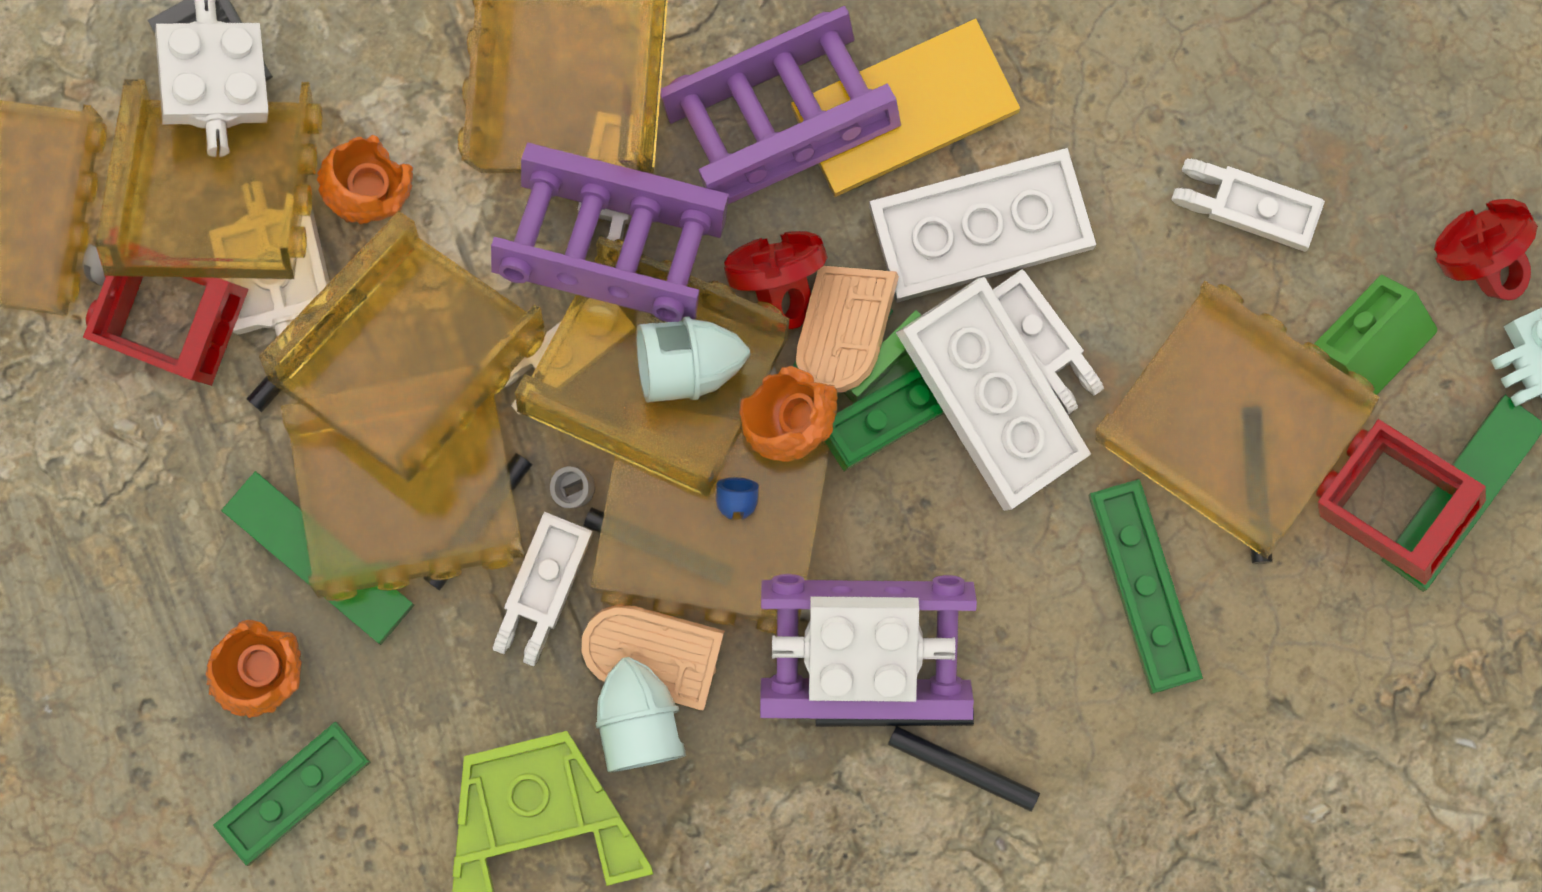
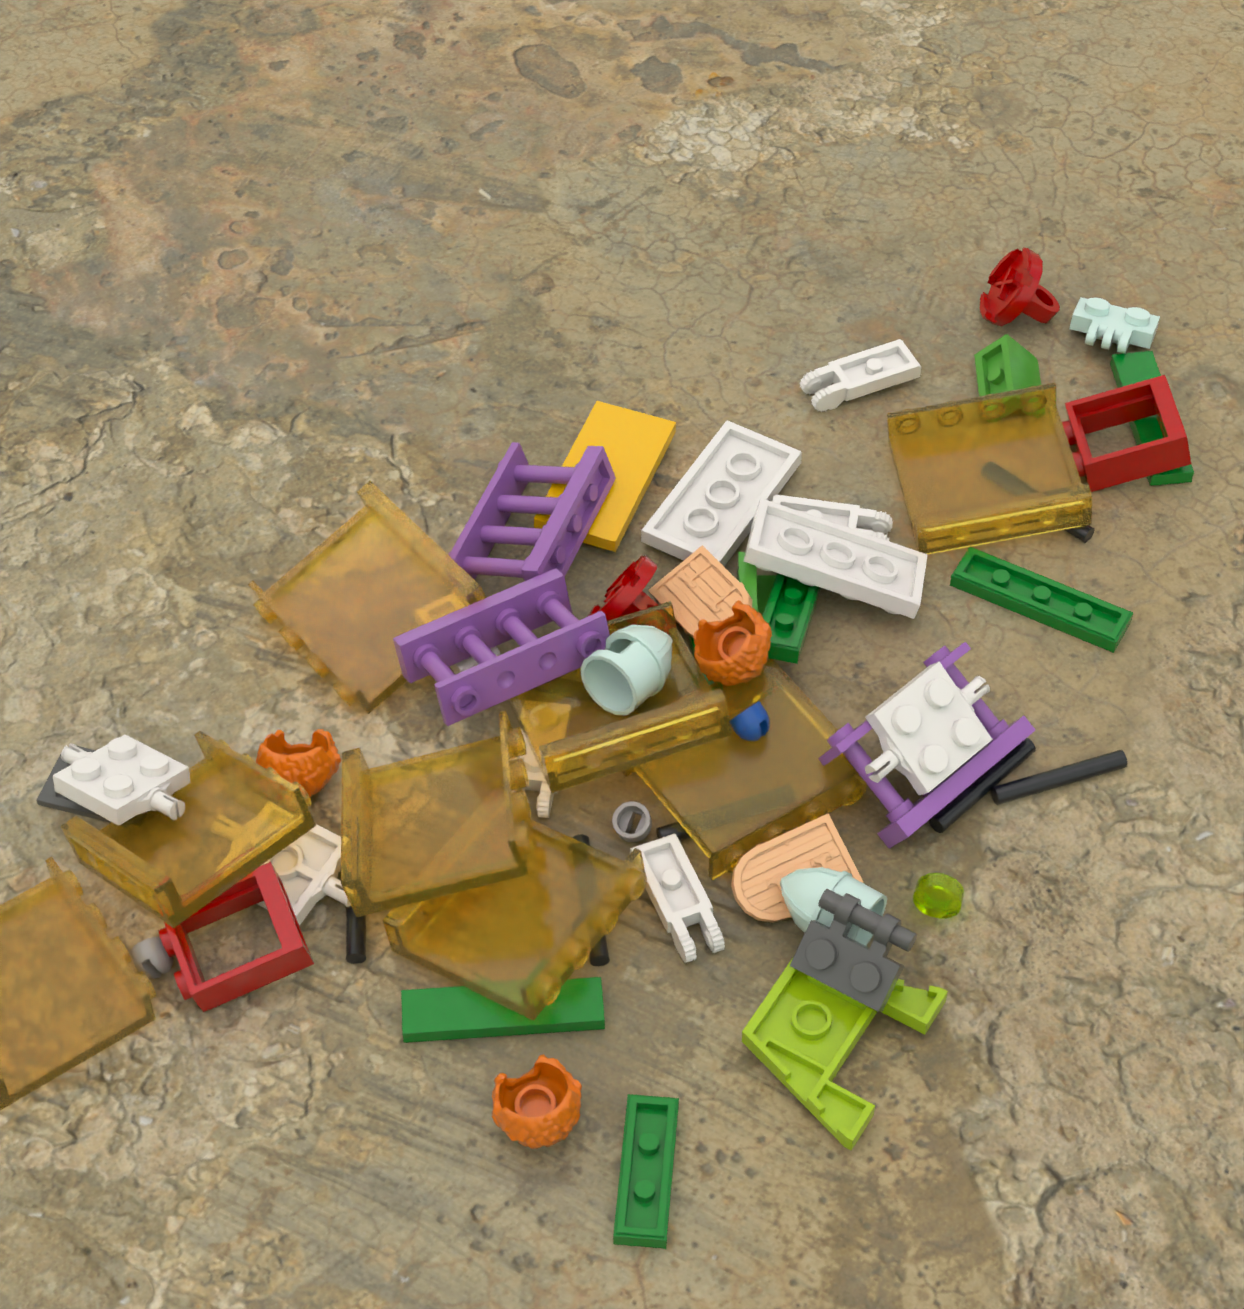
camera: 45 degrees left, 30 degrees down
(588, 786) = (847, 964): none -> dark grey plate
(741, 784) = (938, 895): none -> clear neon green tile

